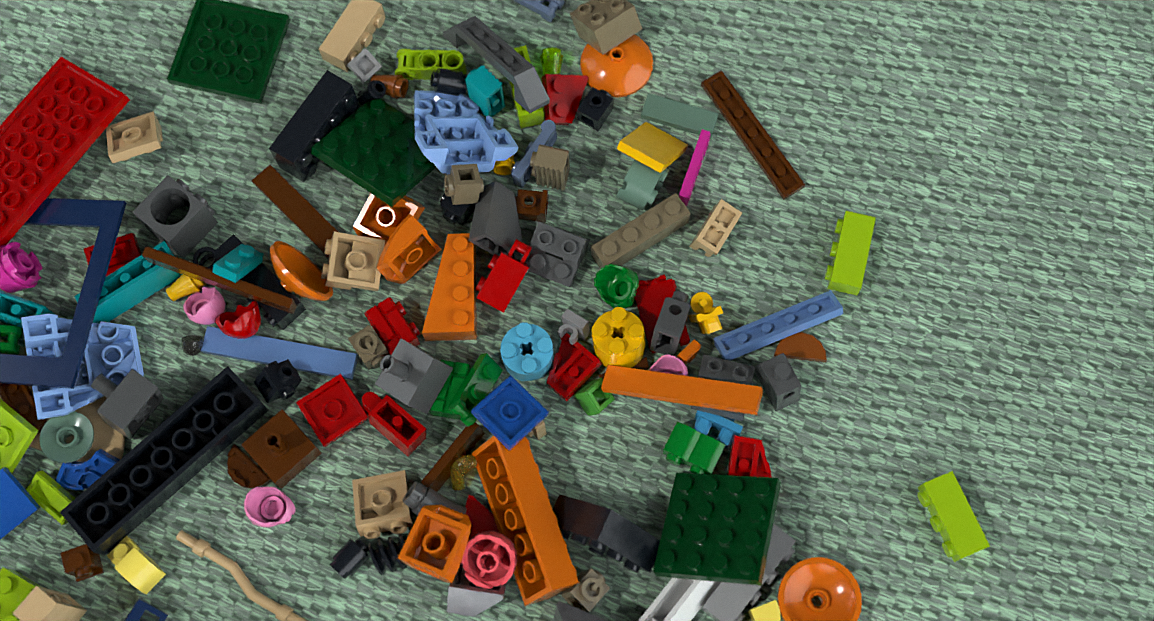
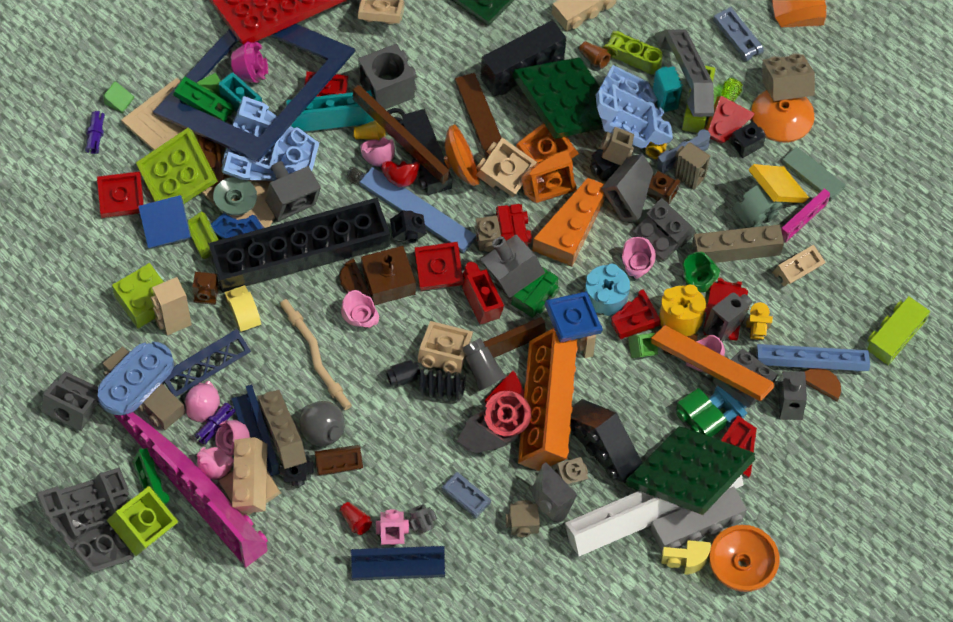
camera: 20 degrees right, 10 degrees down
(238, 263) = (420, 127): teal plate -> none
(364, 65) = (582, 31): light grey tile -> none
(374, 90) = (580, 52): black pin -> none
(437, 542) = (473, 384): orange slope -> none
(448, 82) = (642, 70): black brick -> none
(460, 469) = (516, 347): clear yellow arm -> none
(475, 388) = (560, 289): green plate -> none
(504, 277) = (615, 227): red brick -> none
(543, 298) = (638, 256): none -> bright pink hair
(576, 325) = (653, 287): light grey tile -> none
(689, 352) = (732, 344): orange tile -> none
(752, 135) = (865, 213): reddish brown tile -> none
(952, 517) = (879, 551): lime brick -> none

